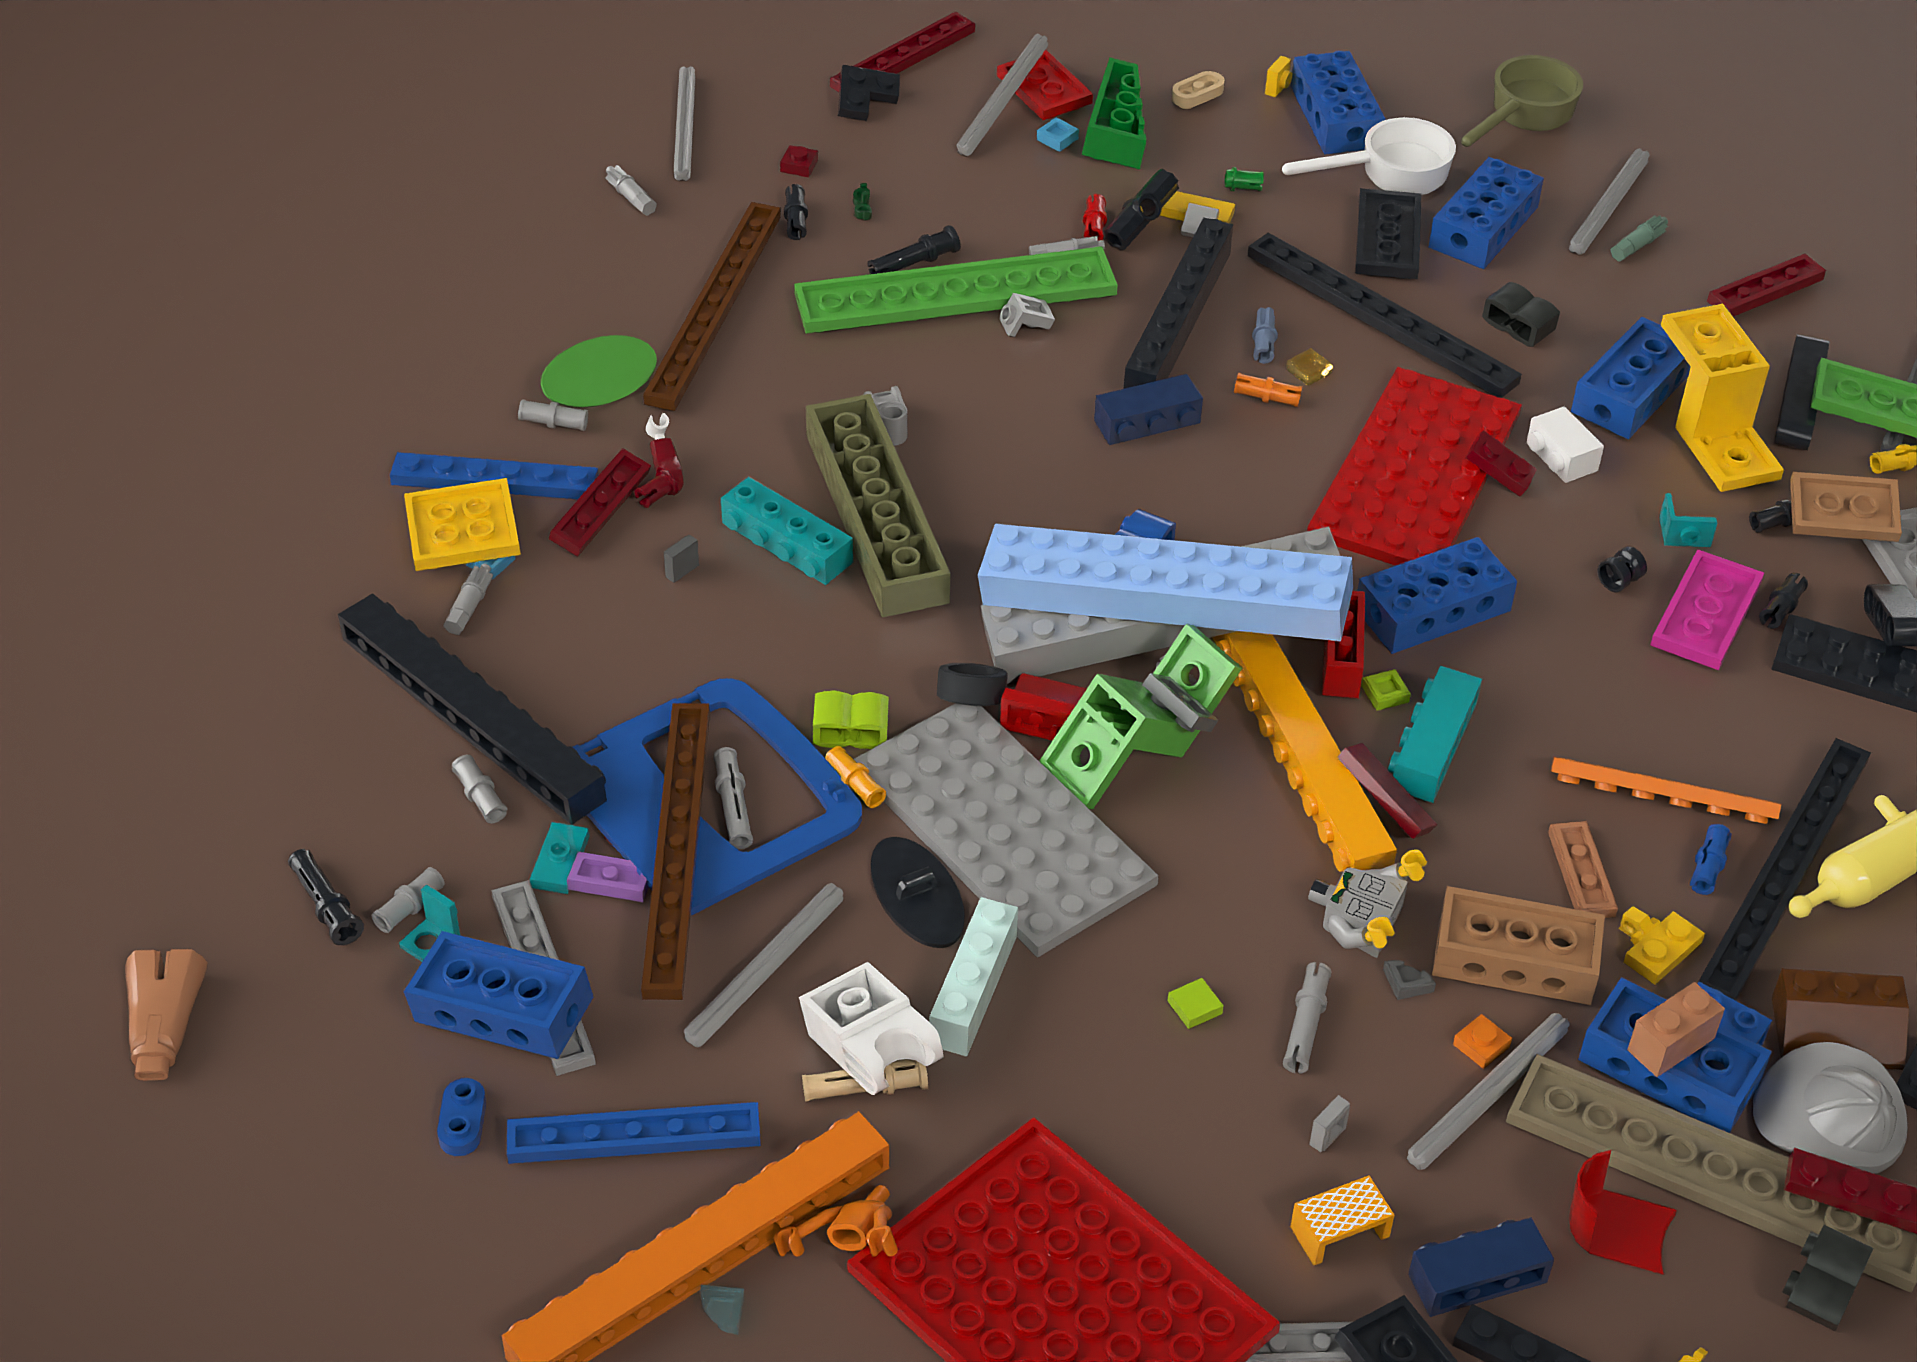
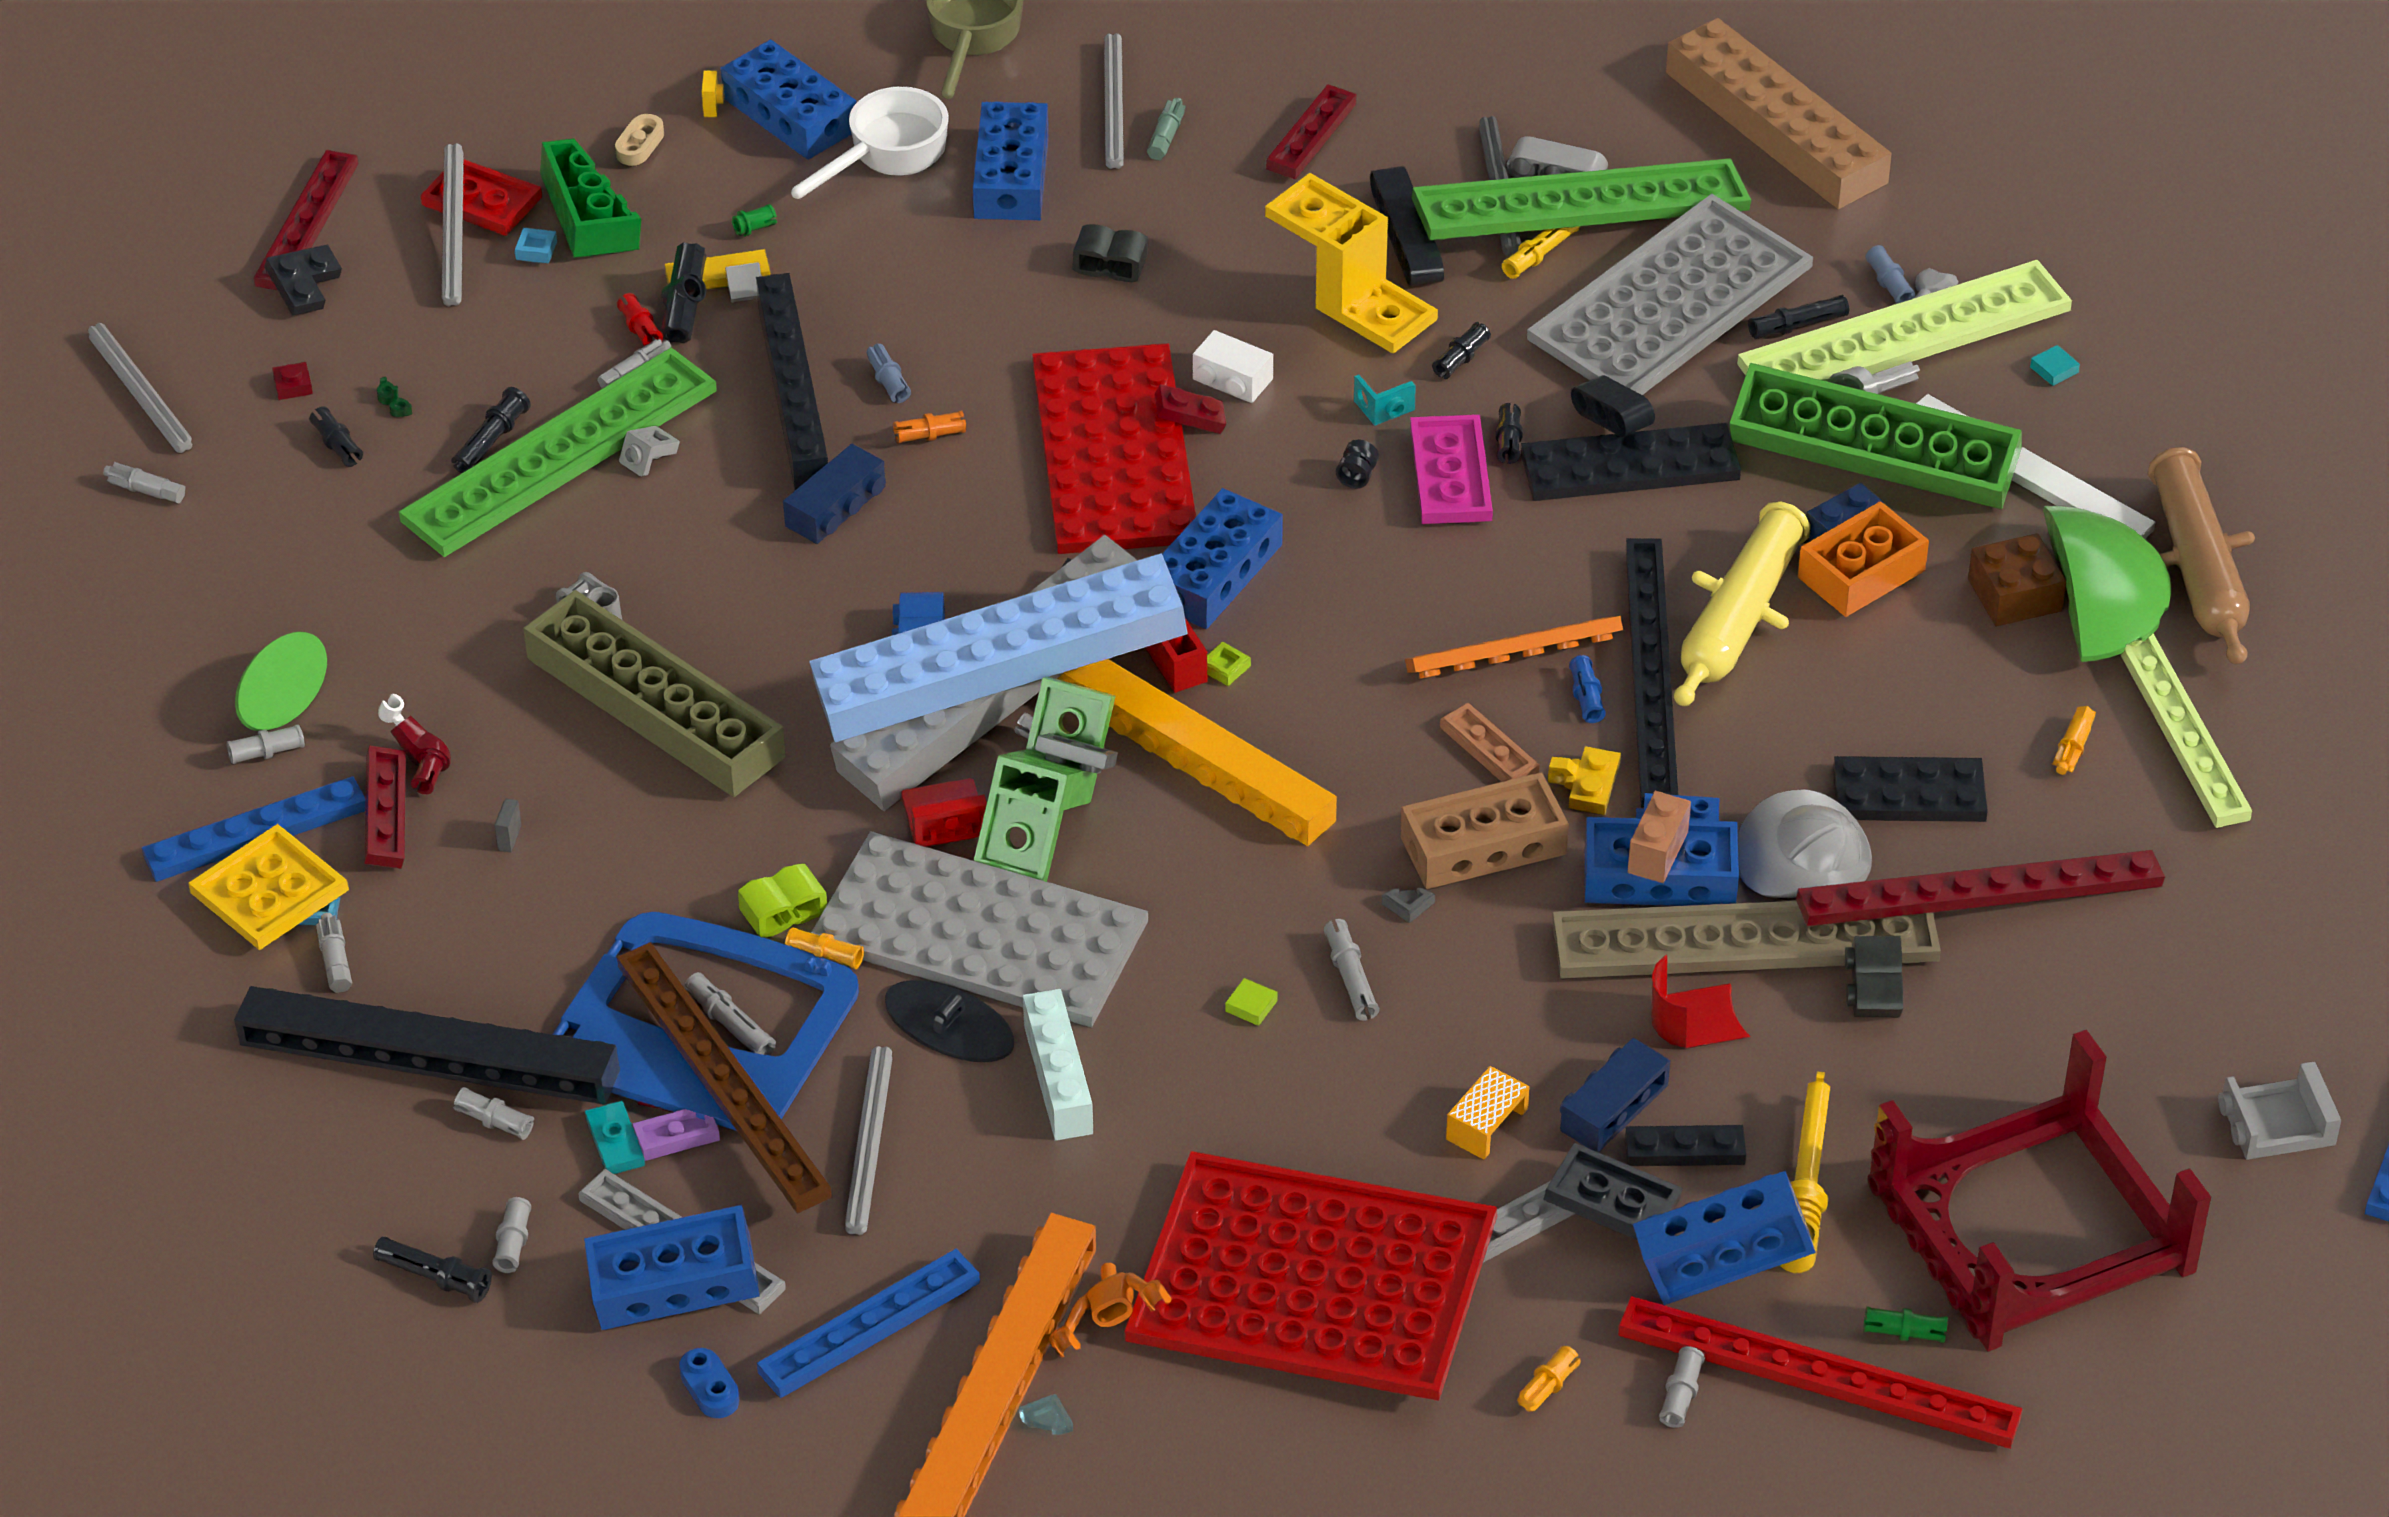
camera: 30 degrees left, 0 degrees up
(160, 1006) = (369, 1423): nougat piece -> none
(440, 916) = (555, 1237): teal bracket -> none
(711, 307) = (332, 567): reddish brown plate -> none
(787, 530) = (624, 761): teal brick -> none
(868, 1026) = (1010, 1142): white brick -> none
(899, 1075) = (1043, 1179): tan pin -> none
(971, 684) = (871, 819): black tyre -> none
(1309, 367) = (949, 388): clear yellow tile -> none
(1330, 1124) = (1428, 1044): light grey tile -> none
(1367, 902) = (1338, 853): light grey torso -> none
(1385, 315) = (981, 306): black plate -> none
(1387, 790) = (1292, 750): dark red tile -> none
(1388, 234) = (931, 220): black plate -> none
(1435, 732) = (1298, 682): teal brick -> none
(1482, 1041) = (1500, 923): orange plate -> none
(1487, 1092) = (1531, 960): light grey axle -> none
(1631, 380) = (1259, 309): blue brick -> none
(1843, 1009) = (1763, 765): reddish brown slope -> none
(1845, 506) = (1514, 323): medium nougat plate -> none

